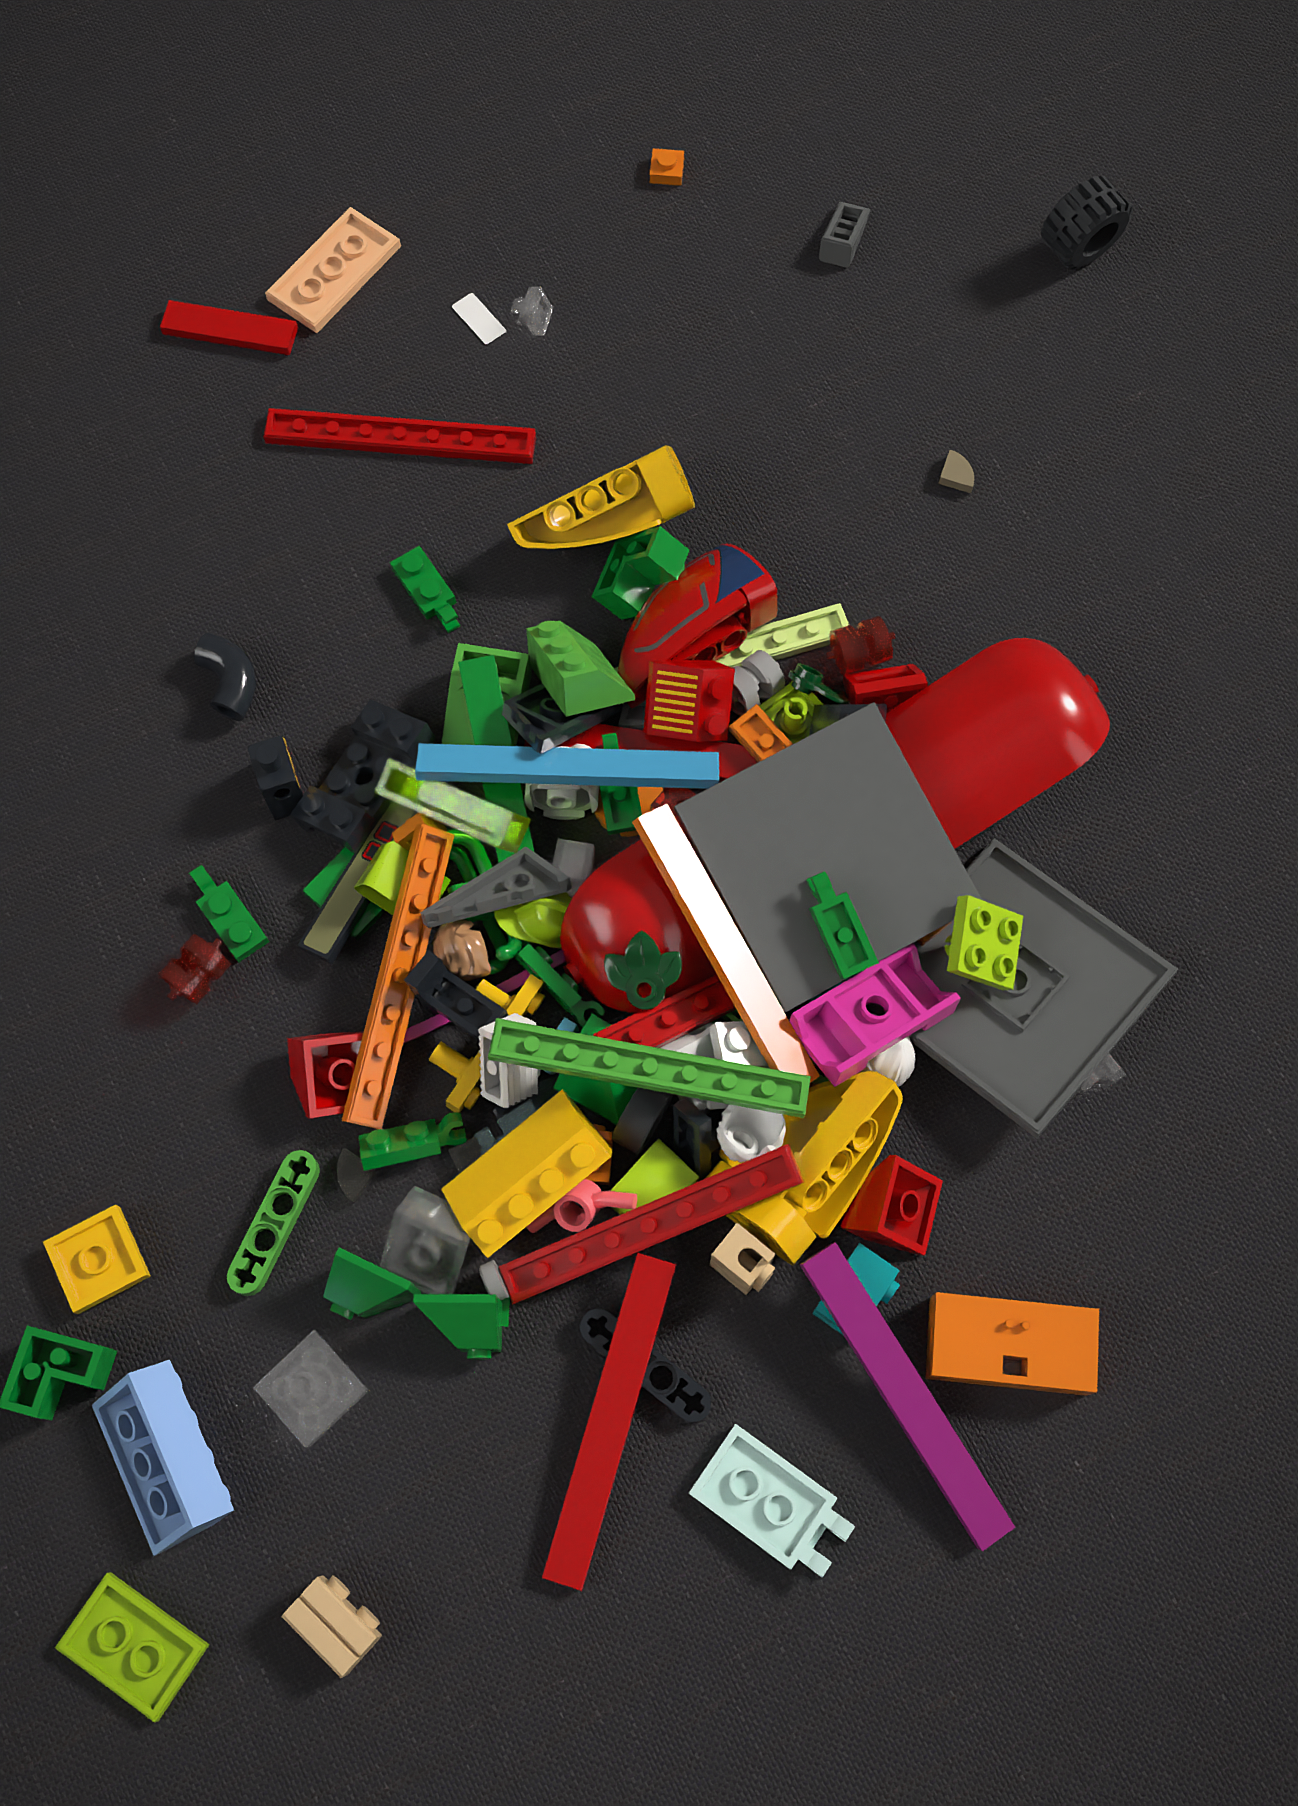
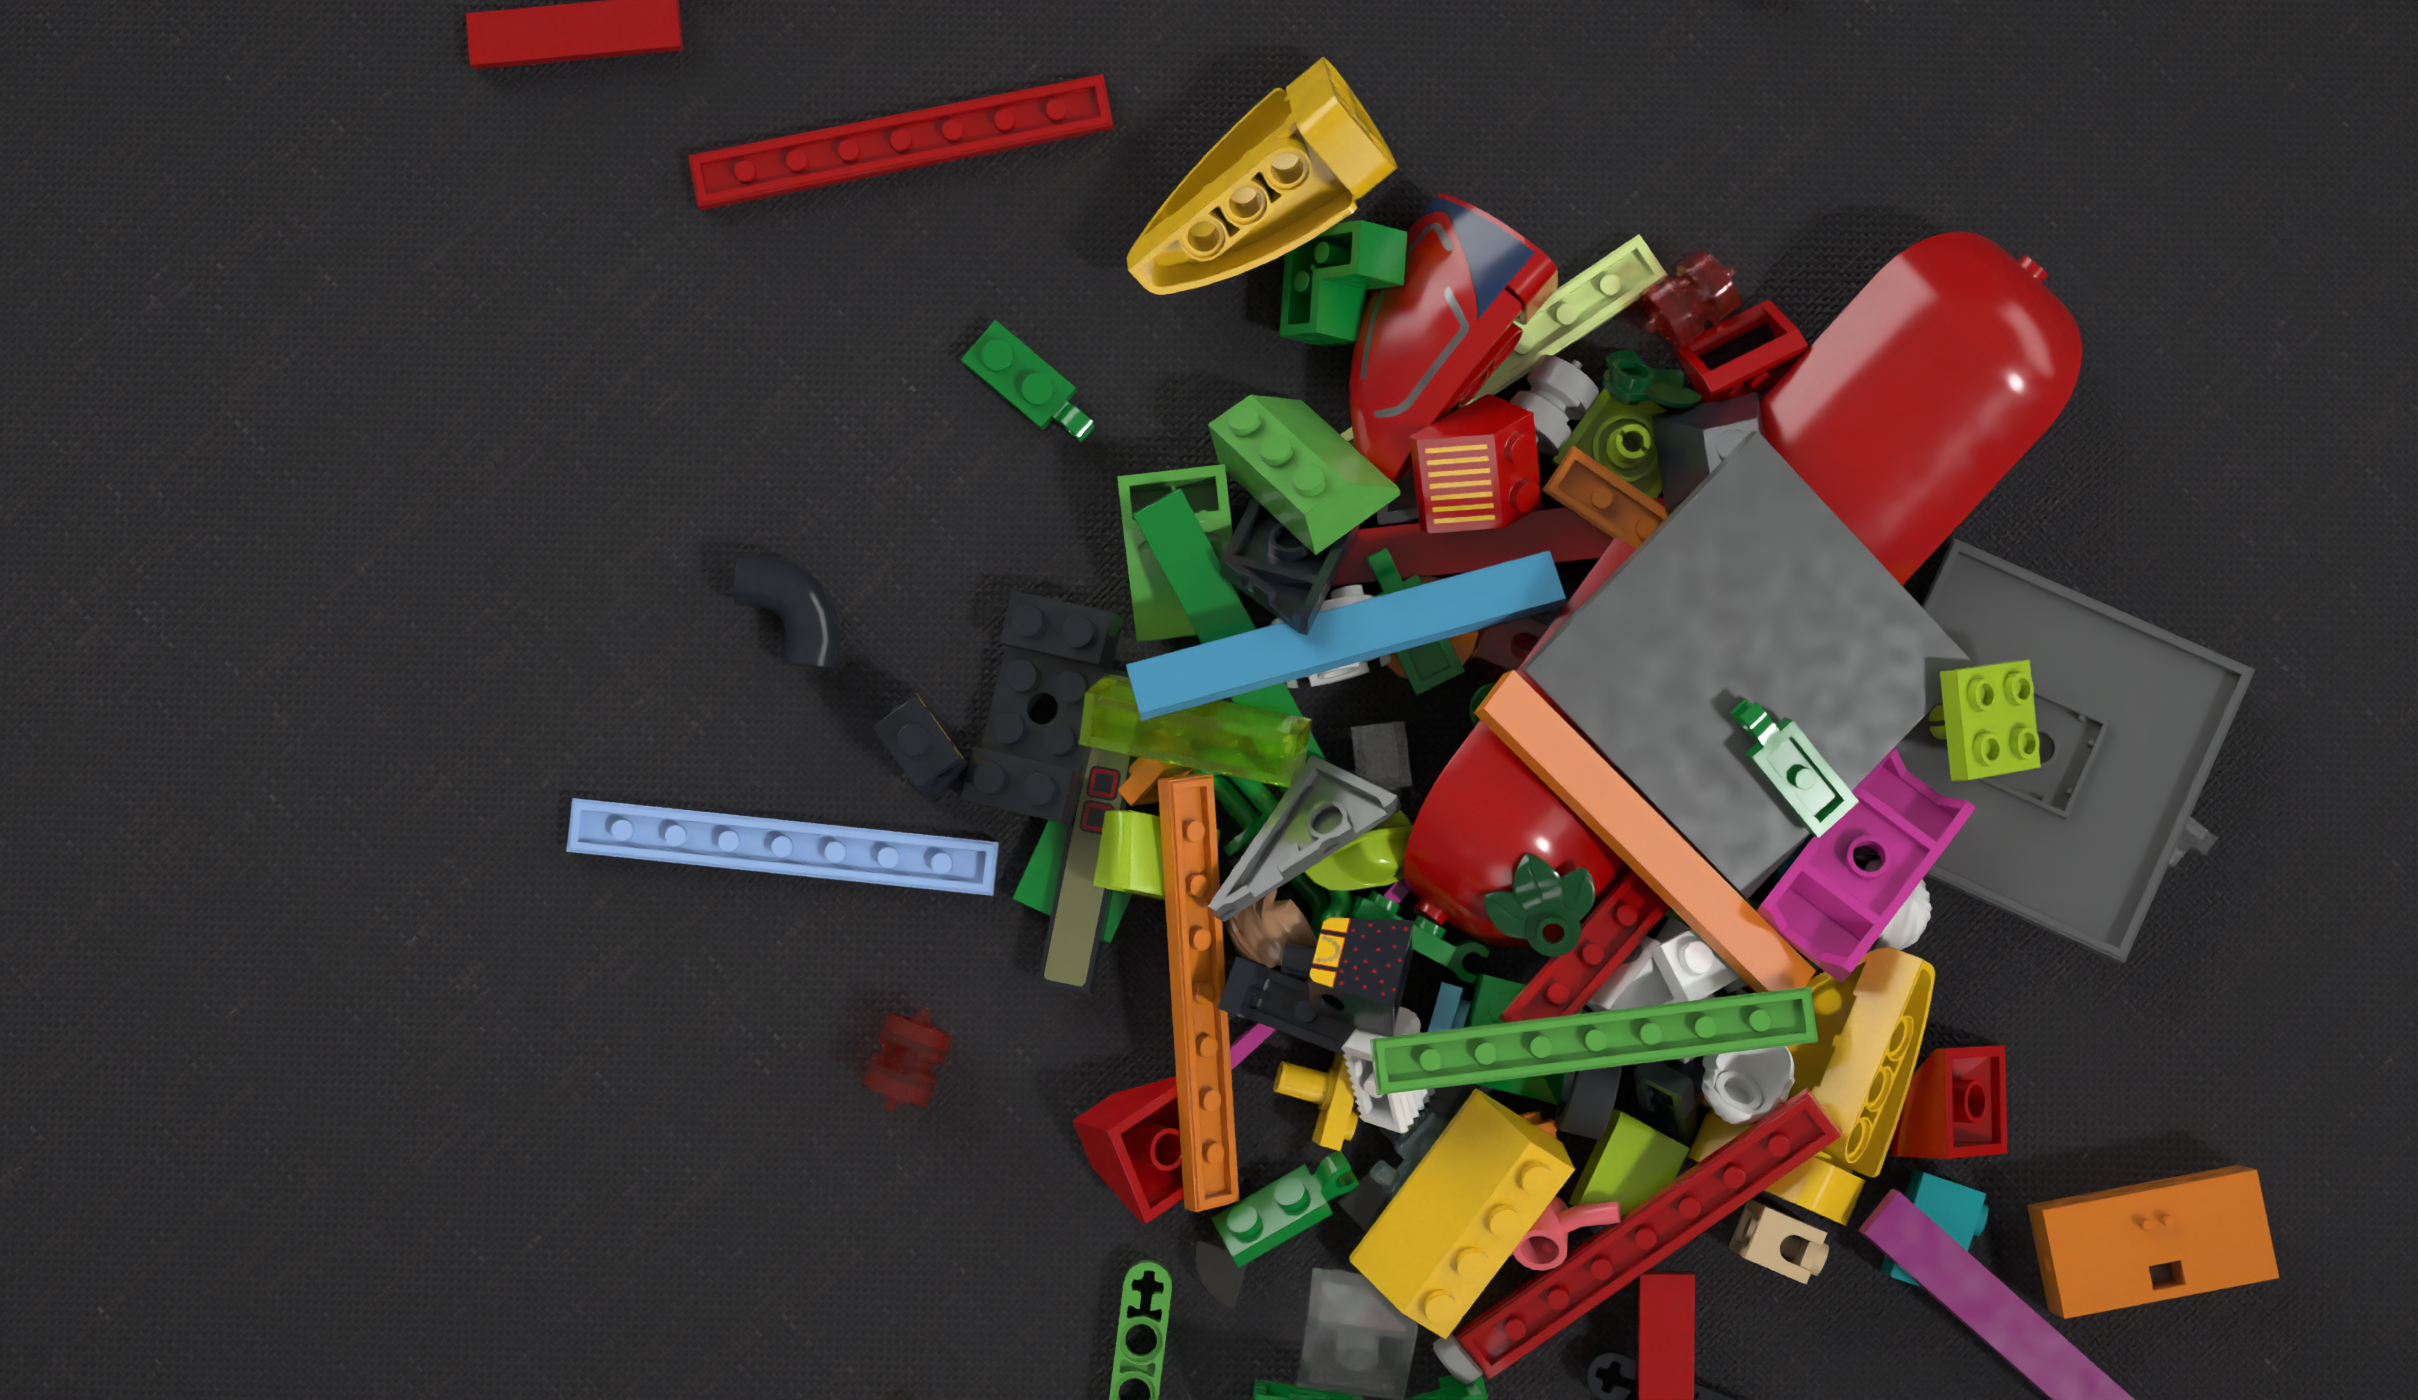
camera: 15 degrees left, 15 degrees up
(170, 819) = (782, 846): none -> light blue tile
(228, 916) = (921, 964): green plate -> none
(506, 982) = (1356, 970): none -> black torso

